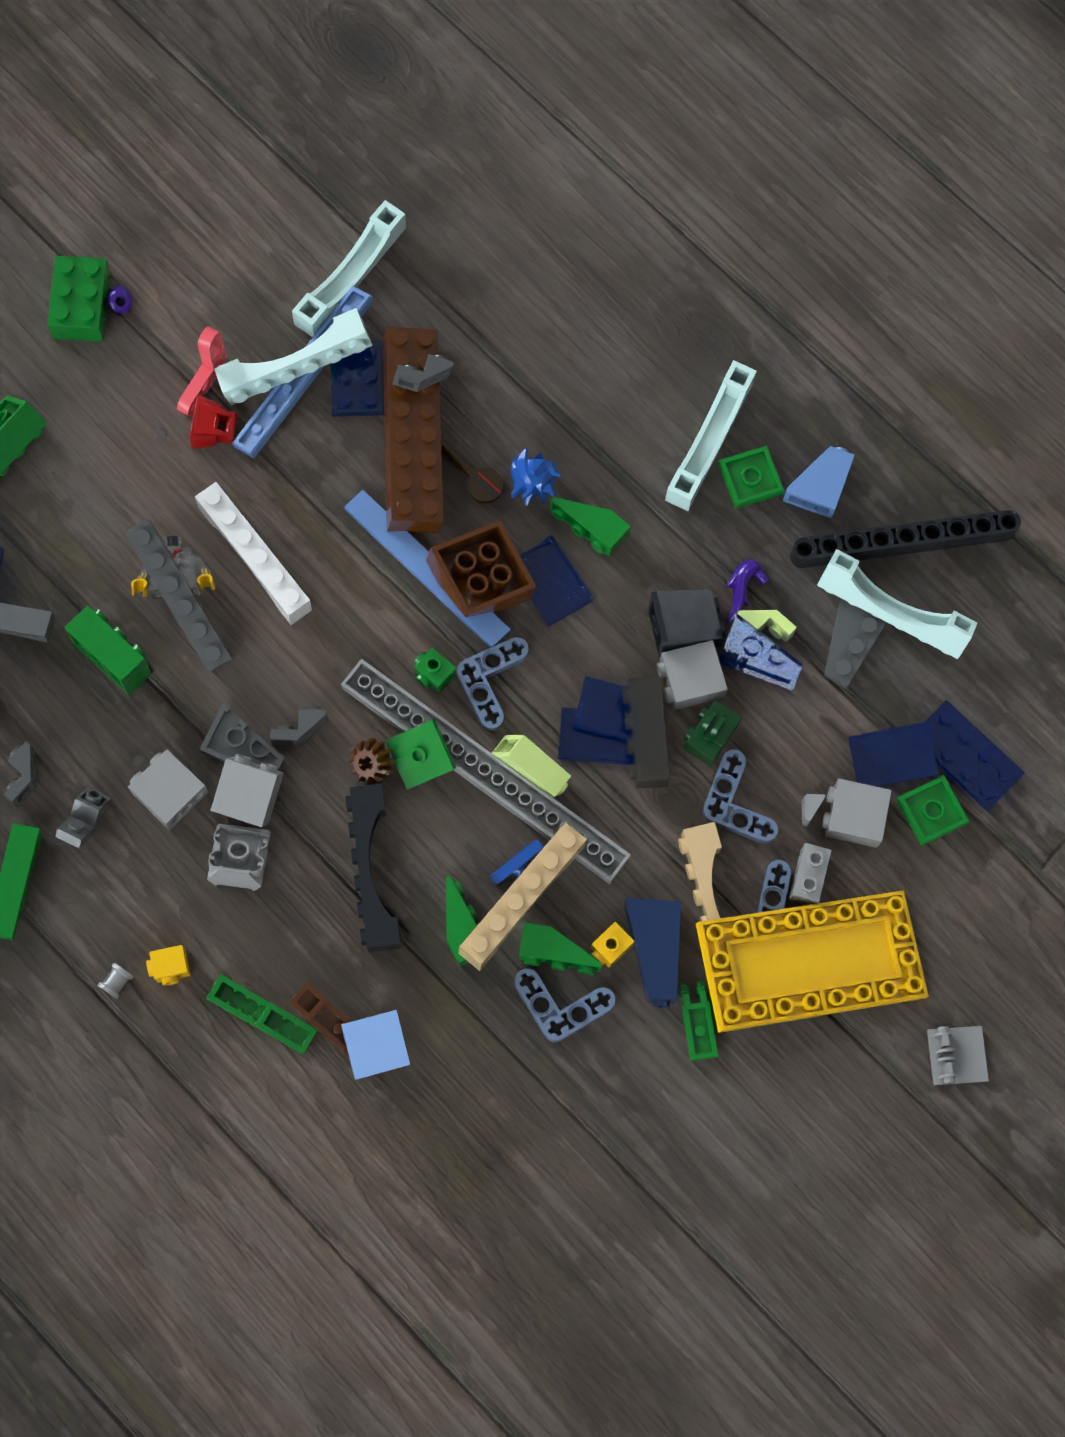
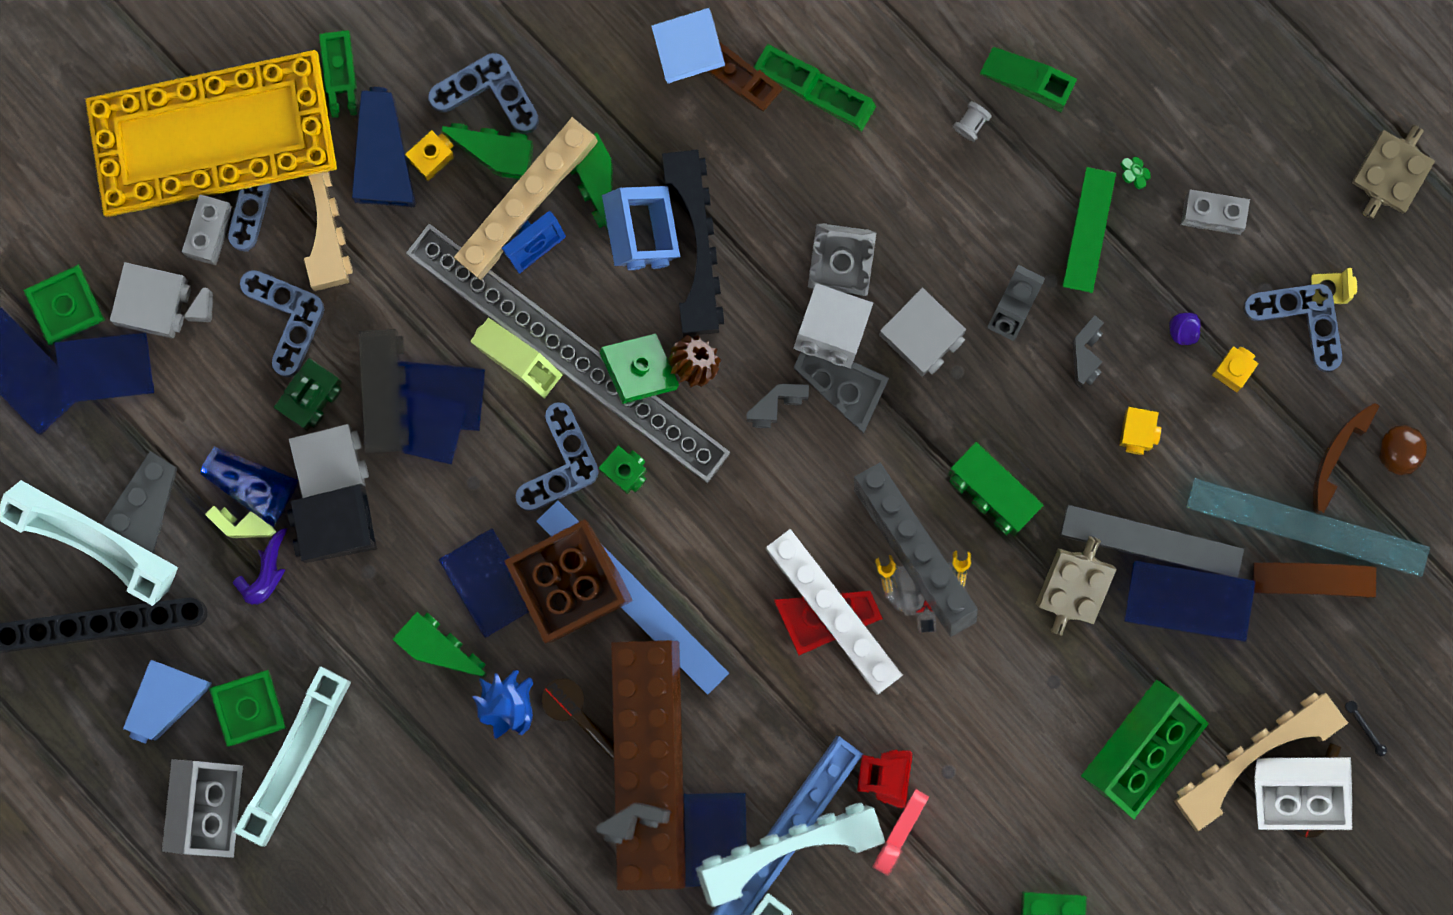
camera: 170 degrees left, 10 degrees up
(42, 573) = (1075, 586): none -> dark tan plate
(60, 1019) = (1029, 78): none -> green slope
(168, 965) = (915, 137): yellow brick -> none
(275, 536) = (809, 631): none -> red wing
(436, 872) = (621, 229): none -> medium blue window
(784, 398) = (202, 808): none -> light grey slope
(957, 1055) = (58, 35): light grey hinge -> none

